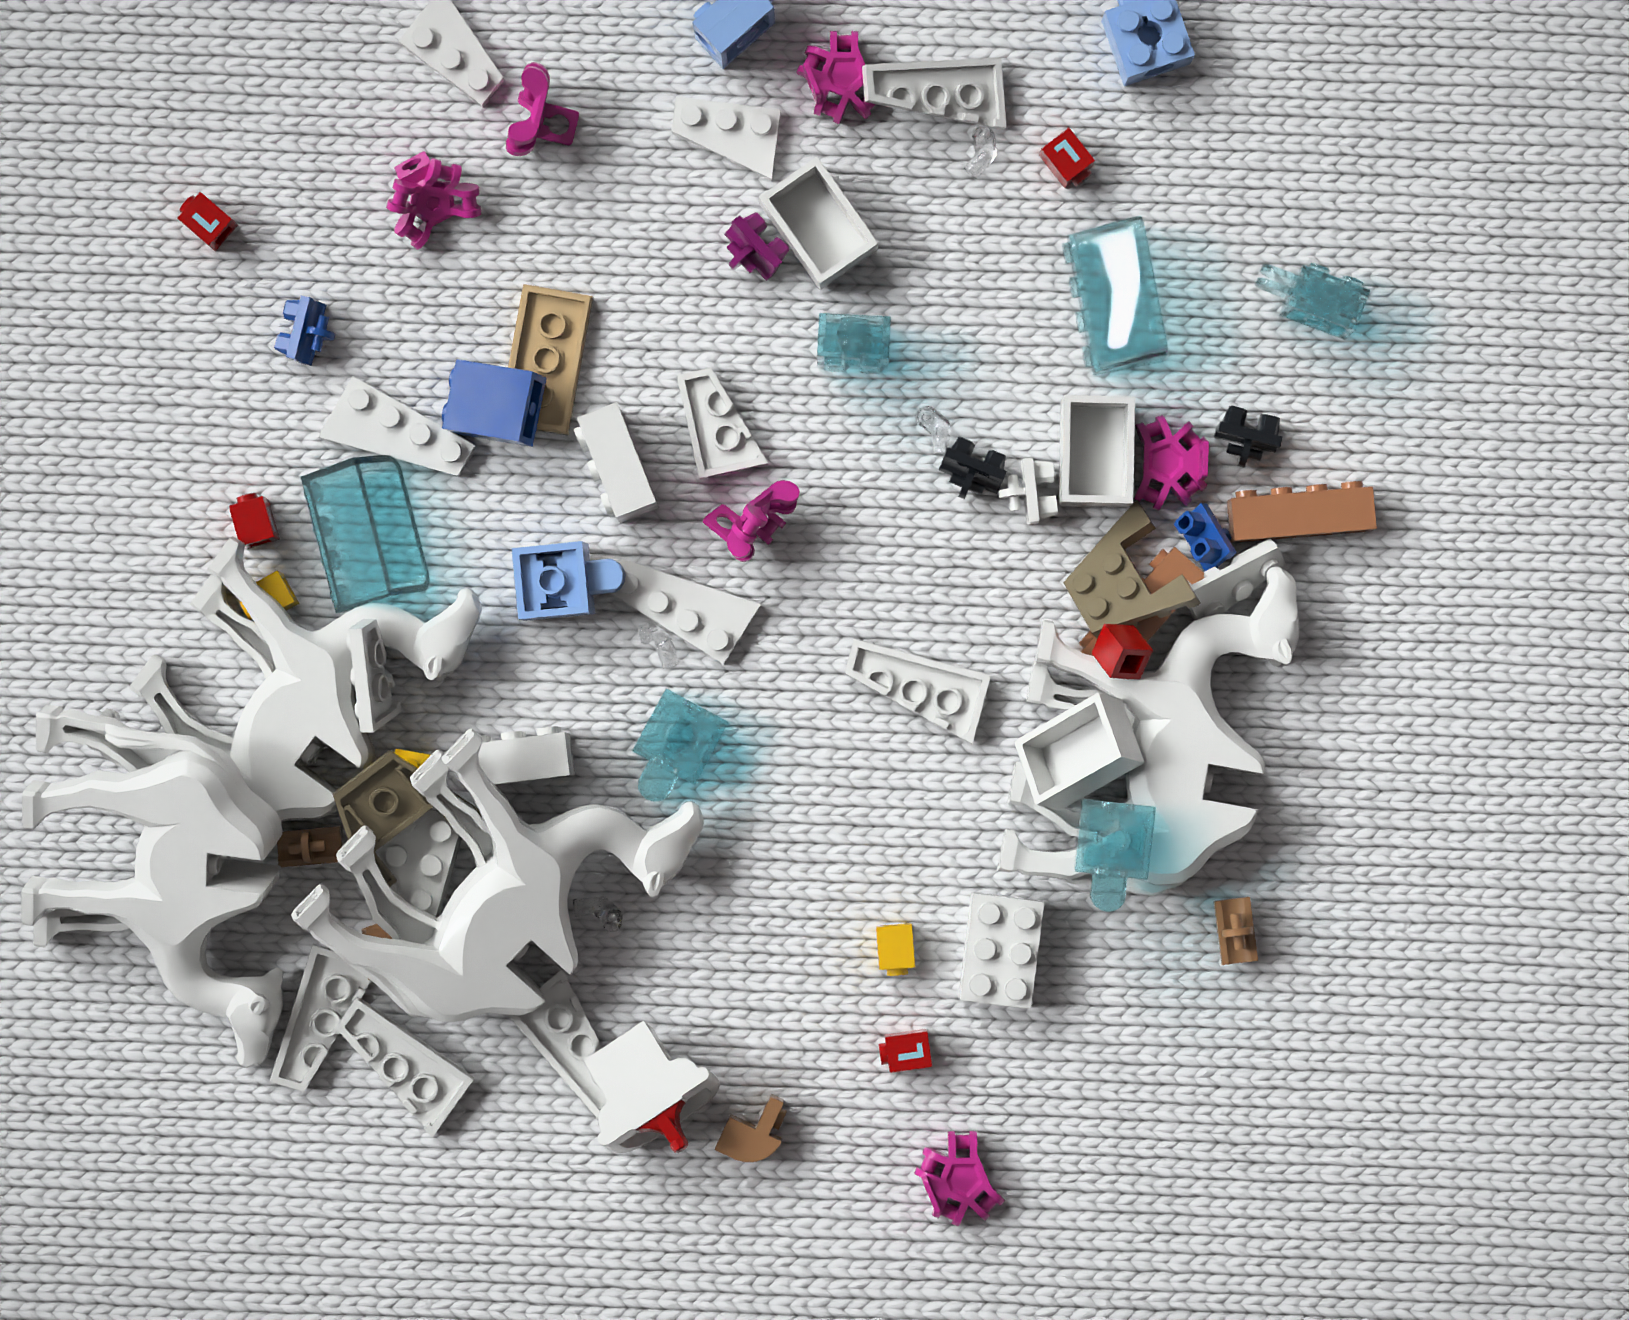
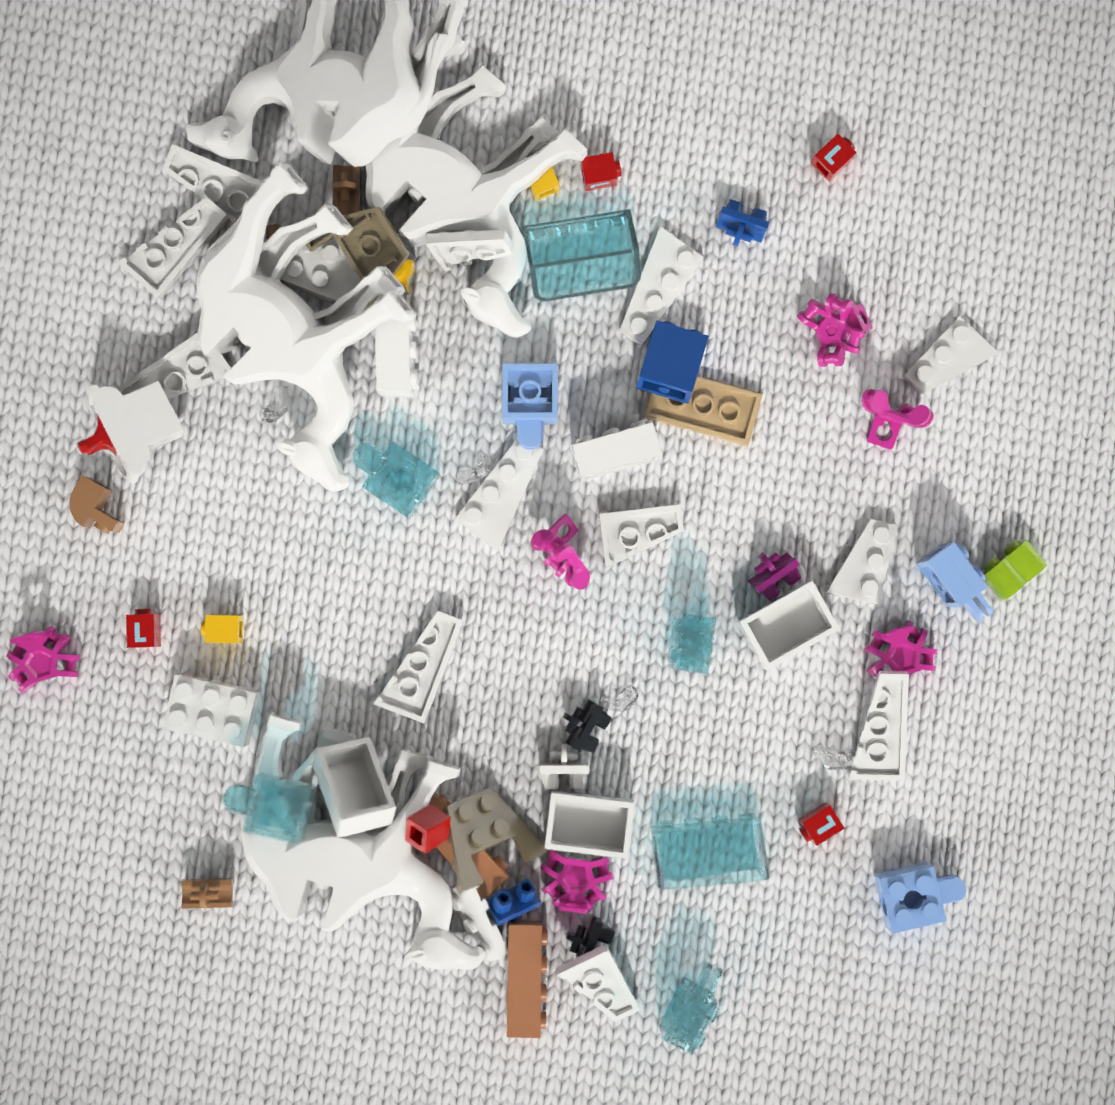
camera: 90 degrees right, 0 degrees up
(1294, 415) = (601, 981): none -> white wing

